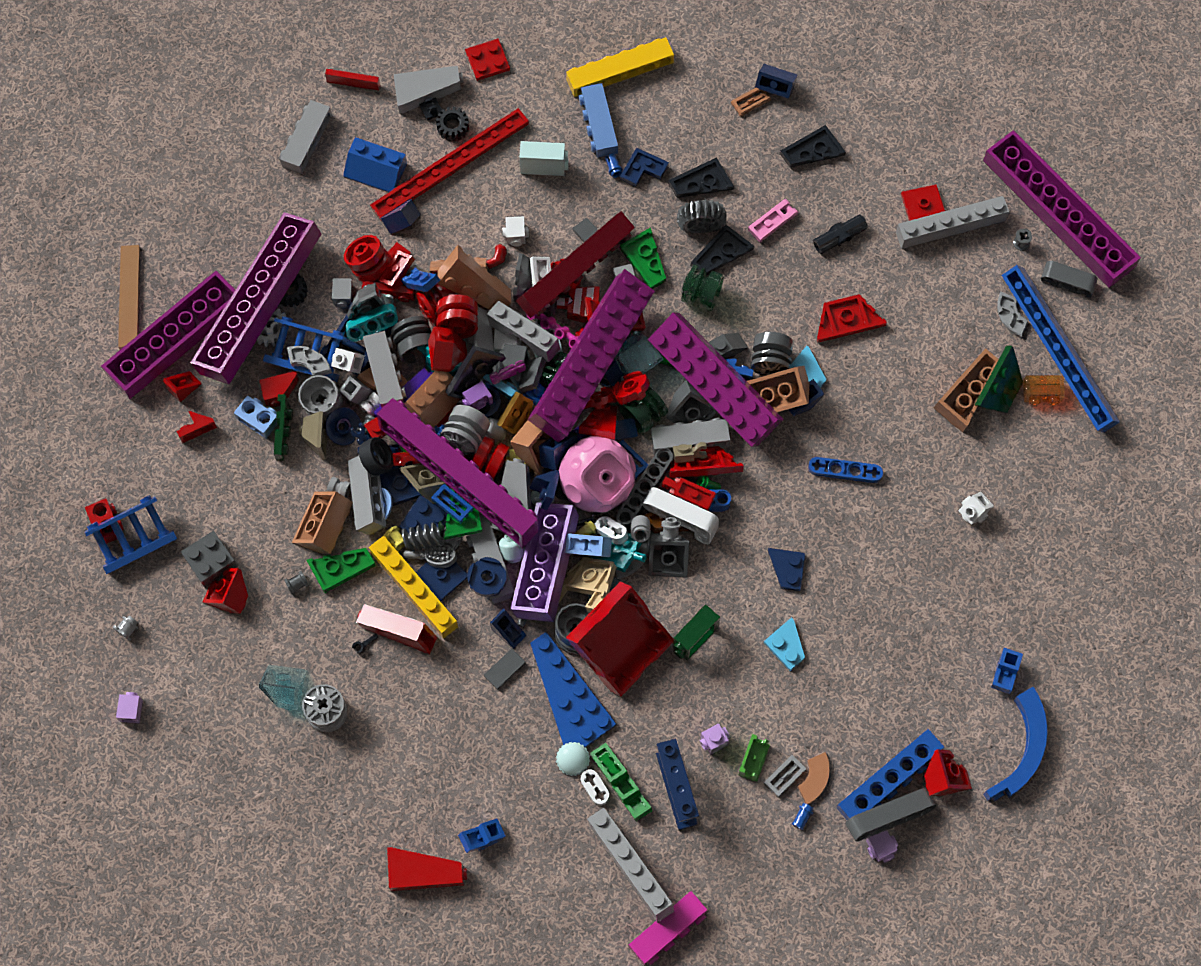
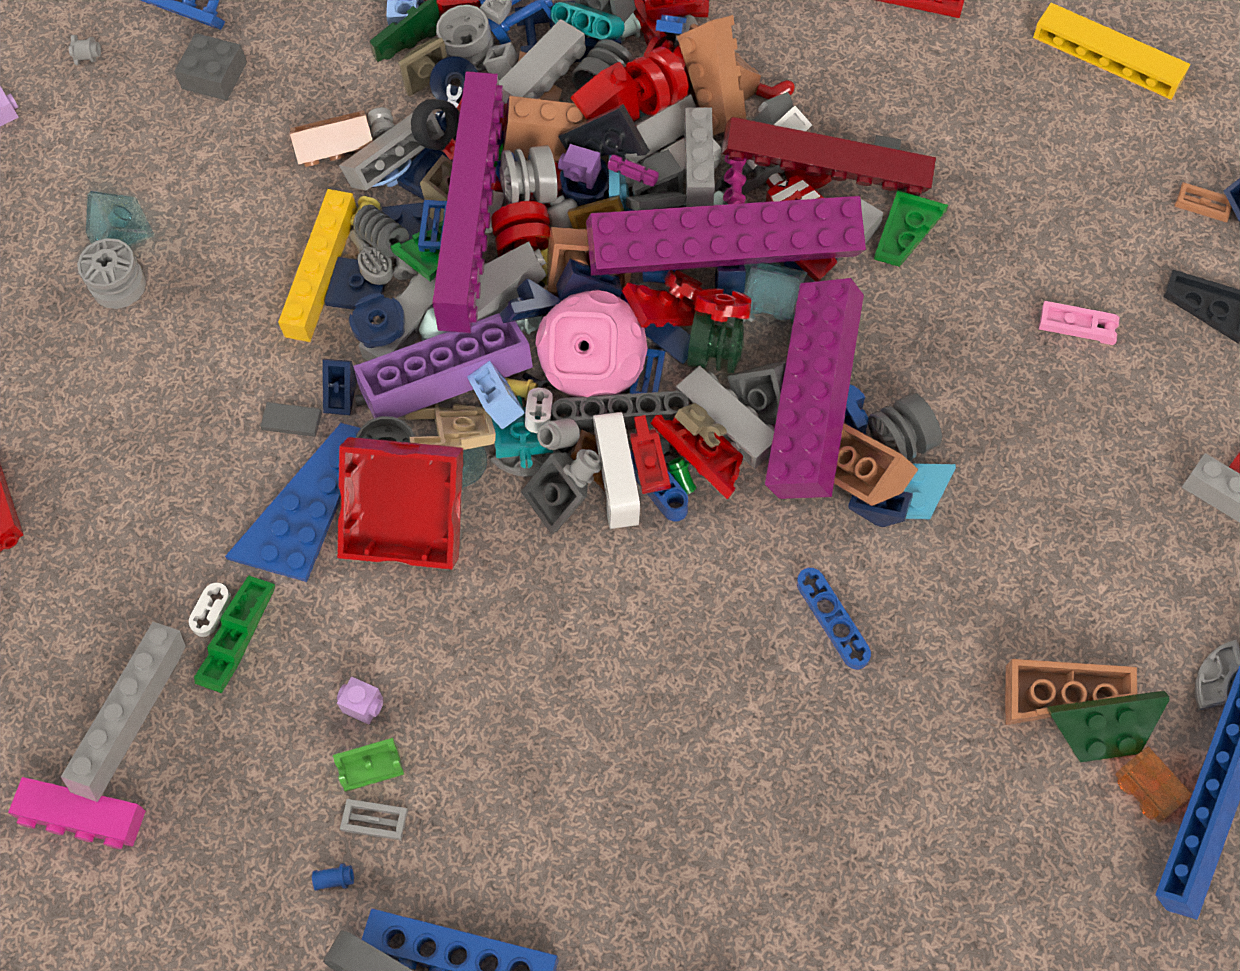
camera: 55 degrees right, 5 degrees down
(228, 592) = (184, 108): red slope -> none
(296, 582) = (243, 158): dark grey bush -> none
(338, 569) = (289, 185): green wing -> none
(347, 360) = (524, 28): white brick -> none
(364, 643) = (218, 266): black hand -> none
(397, 628) = (257, 283): slope -> none
(482, 836) = (63, 526): blue brick -> none
(515, 231) = (821, 85): white brick -> none
(543, 158) = (927, 48): light aqua brick -> none
(572, 758) = (229, 561): light aqua hat -> none
(599, 120) = (1027, 73): medium blue brick -> none
(613, 165) = (985, 127): blue pin -> none
(641, 163) = (1018, 147): dark blue plate -> none
(677, 784) = (262, 693): dark blue fence -> none
(695, 632) = (477, 584): dark green window -> none
(701, 180) = (1056, 218): black wing -> none
(701, 216) = (1008, 242): dark grey gear -> none
(701, 287) = (921, 298): clear green wheel -> none
(722, 250) = (989, 295): black wing -> none
(729, 345) = (875, 378): dark grey slope -> none
(786, 645) = (548, 704): medium azure wing -> none
(788, 567) = (651, 638): dark blue wing -> none
(816, 779) = (396, 861): nougat tile -> none
(840, 233) = (1132, 403): black piece -> none
(847, 317) = (1031, 485): red wing -> none
(975, 508) = (912, 810): white brick -> none

